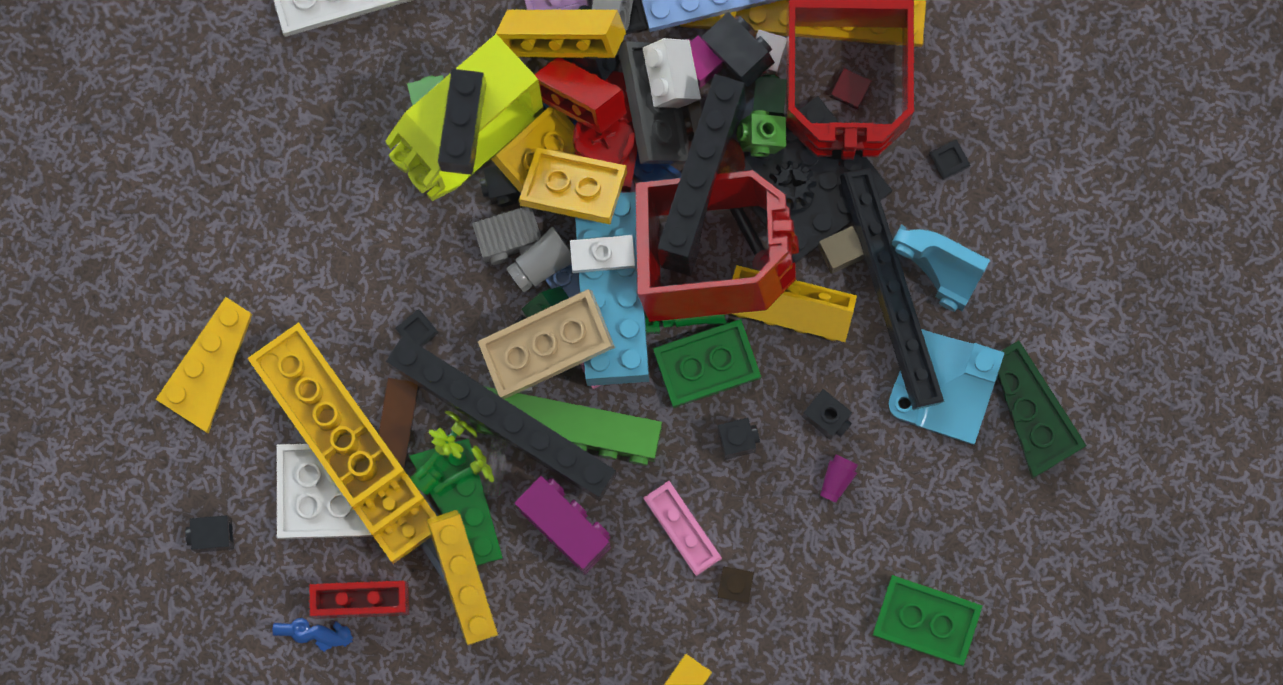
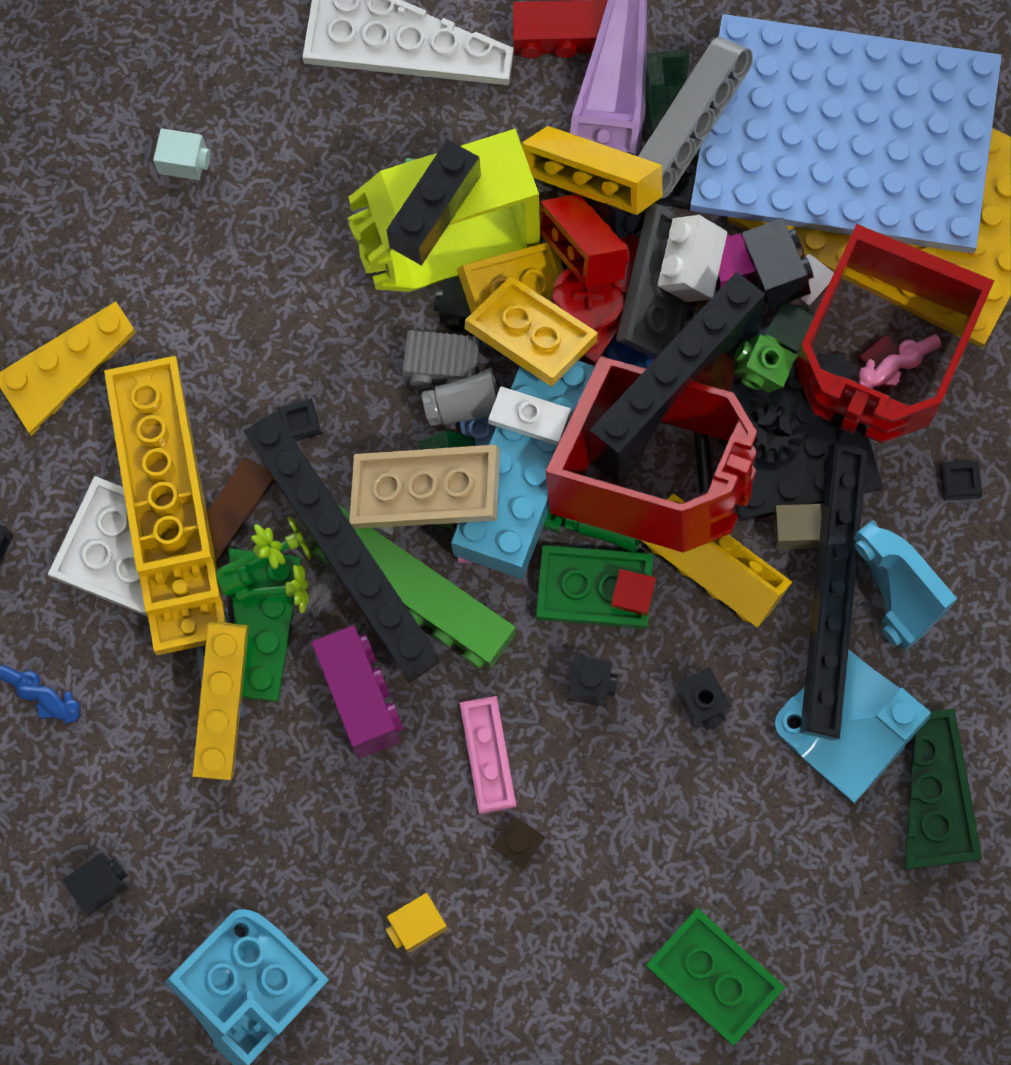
camera: 25 degrees right, 5 degrees down
(222, 154) = (181, 154): none -> light aqua brick
(359, 599) = (102, 677): red brick -> none
(739, 355) = (633, 592): none -> red tile
(838, 477) = (684, 773): magenta cone -> none
(858, 94) = (888, 370): none -> bright pink animal

